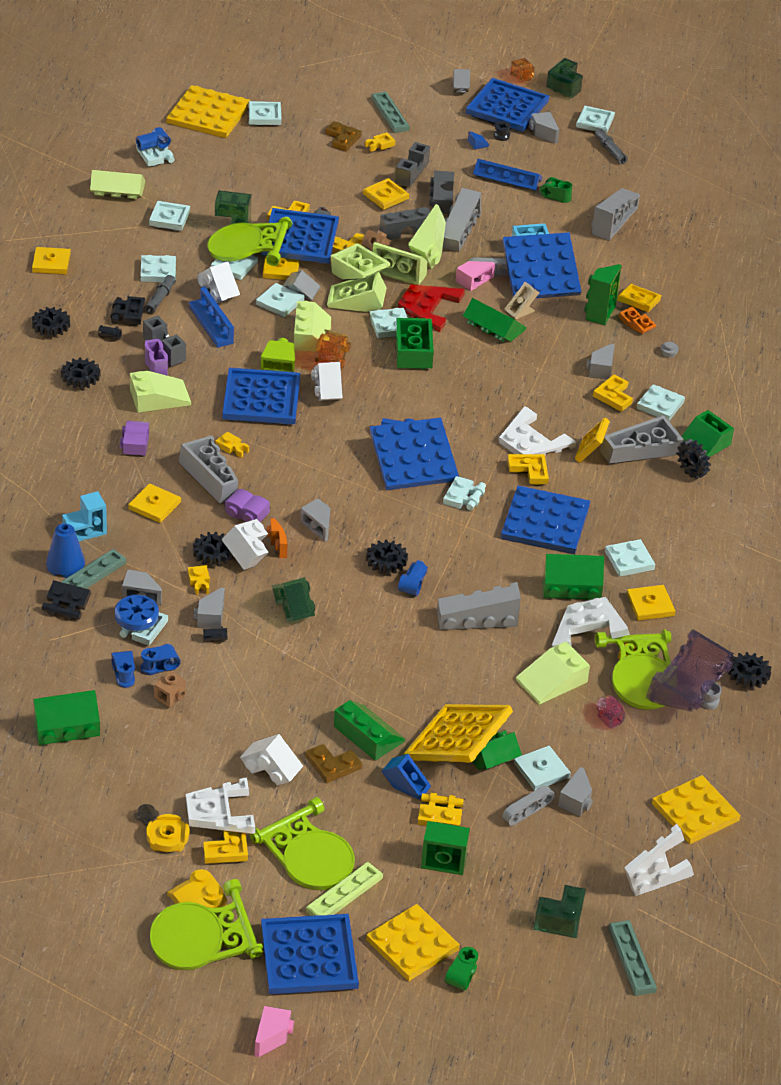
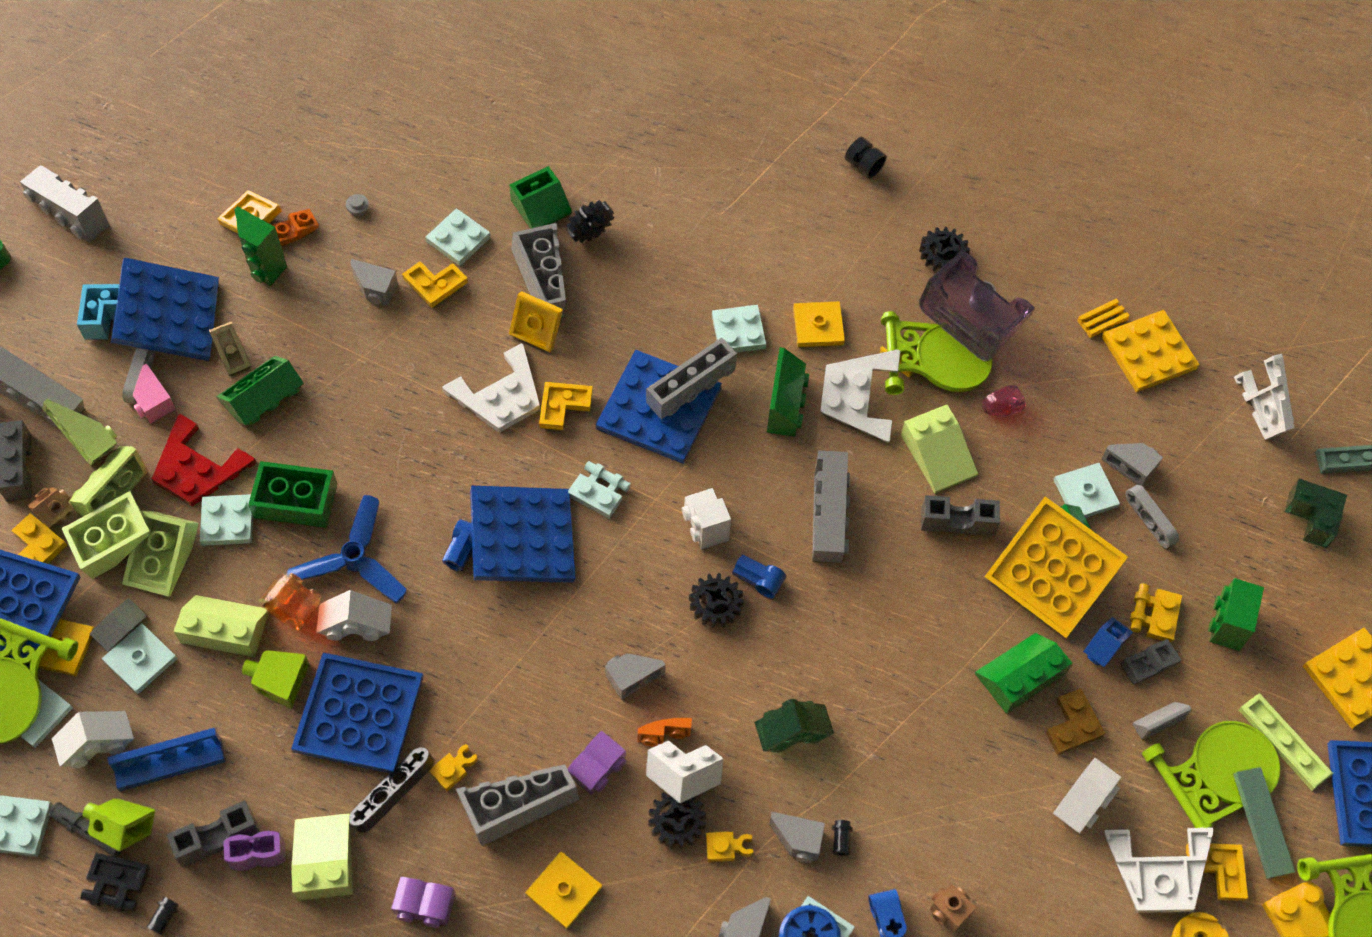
camera: 80 degrees left, 20 degrees up
(164, 301) = (119, 822): none -> lime torso
(210, 416) = (394, 791): none -> black beam
(272, 869) = (1264, 823): none -> sand green tile
(345, 813) = (1161, 719): none -> light grey slope
(378, 379) = (359, 539): none -> blue piece
(394, 807) = (1150, 662): none -> dark grey slope
(451, 544) = (708, 518): none -> white brick
(490, 673) = (978, 518): none -> dark grey arch
(565, 518) = (691, 378): none -> light grey brick
(721, 776) = (1098, 311): none -> yellow tile

